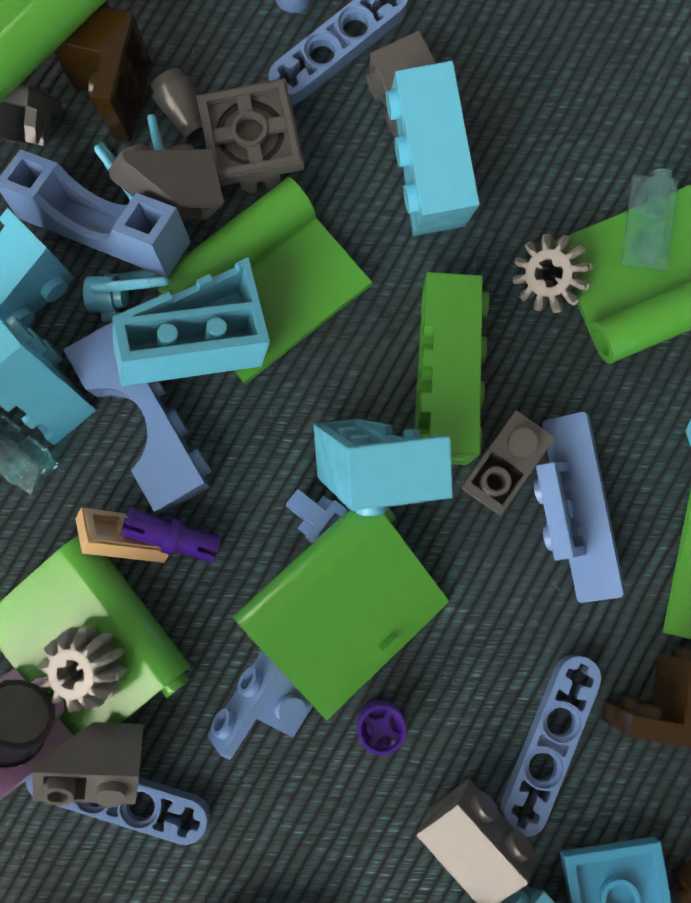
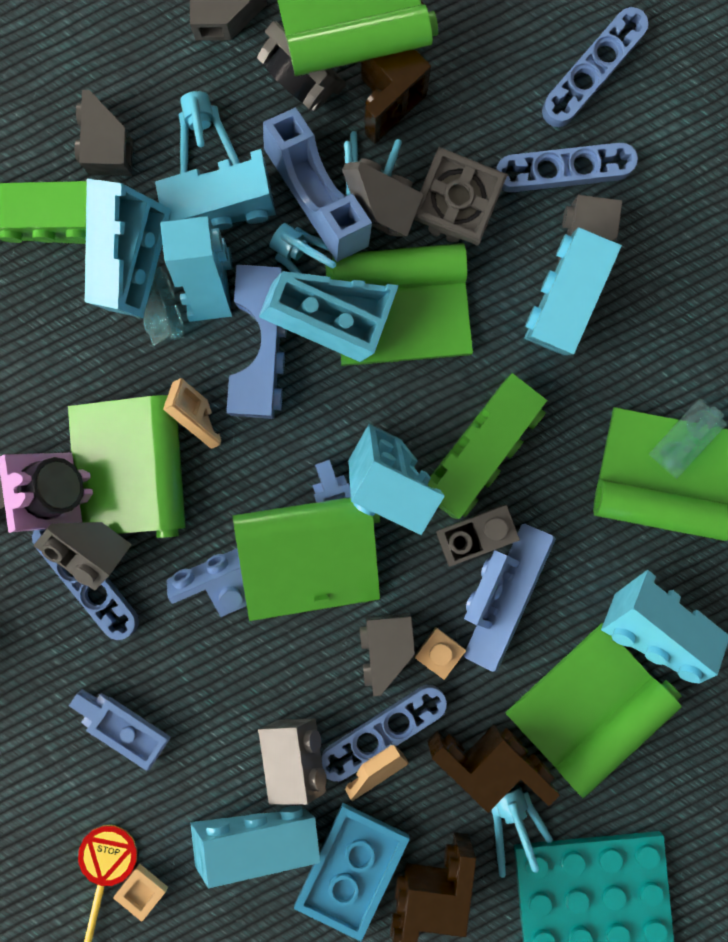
camera: 35 degrees right, 5 degrees up
(82, 668) = (116, 483): light grey gear -> none
(170, 535) = (227, 434): dark purple pin -> none
(177, 99) = (425, 137): dark grey cone -> none
(384, 733) = (279, 653): dark purple wheel -> none
(498, 648) = (389, 648): none -> dark grey slope
(551, 616) = (440, 653): none -> tan plate
(560, 258) = (607, 420): light grey gear -> none
(572, 792) = (376, 771): none -> tan tile

